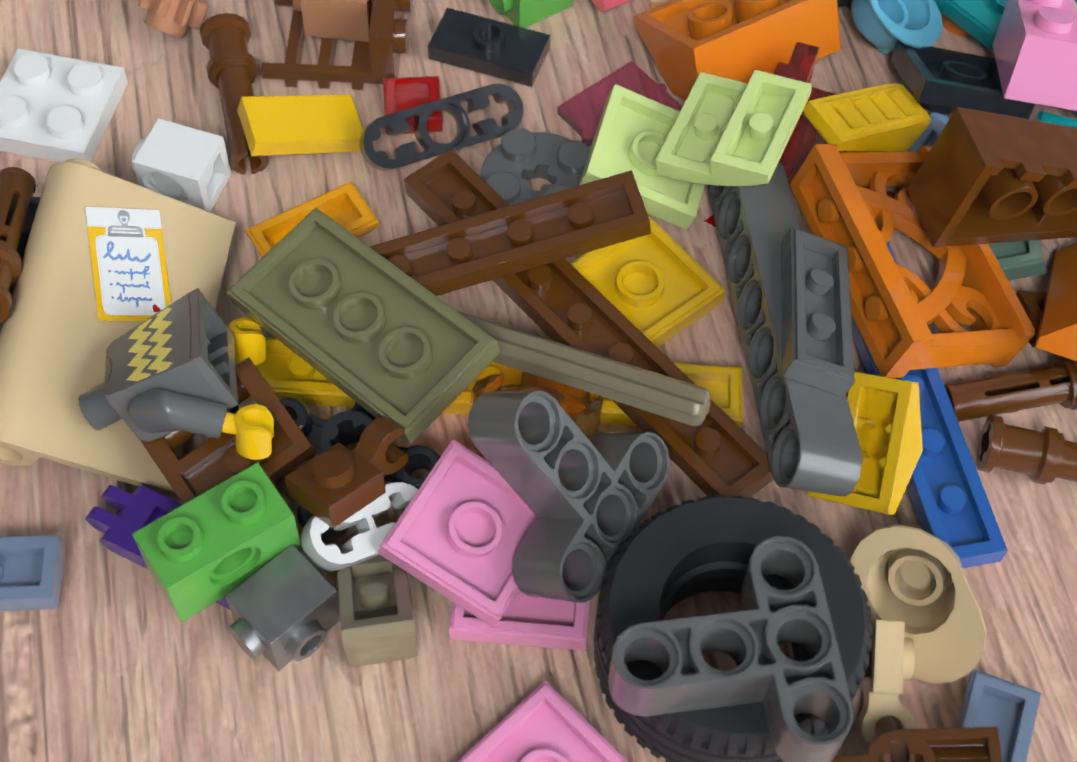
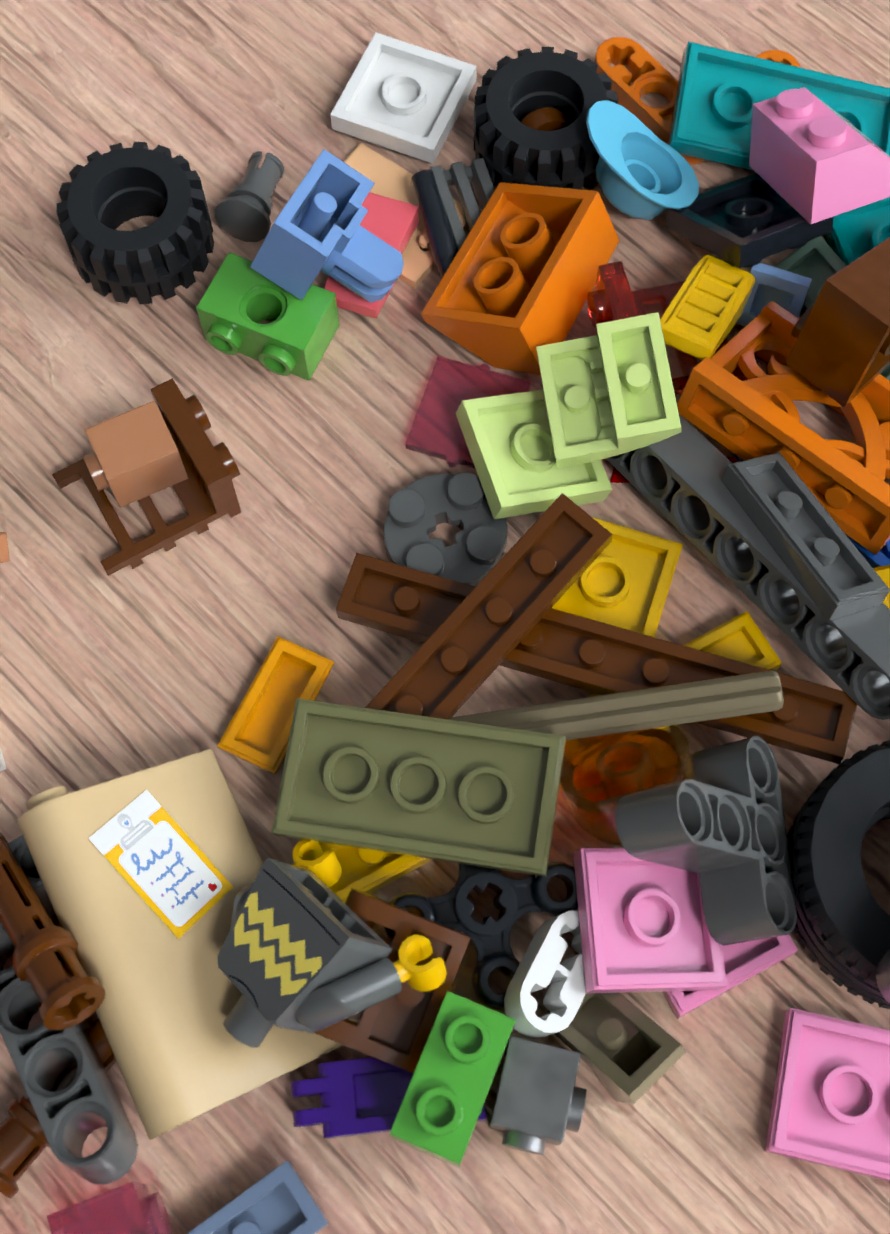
camera: 30 degrees left, 10 degrees up
(182, 164) = (108, 720): white brick -> none
(233, 73) = (81, 589): reddish brown pin -> none
(300, 124) = (191, 607): yellow tile -> none
(345, 480) = (522, 952): reddish brown plate -> none
(411, 92) = (271, 519): red tile -> none
(485, 129) = (306, 574): black beam -> none
(489, 47) = (298, 416): black plate -> none

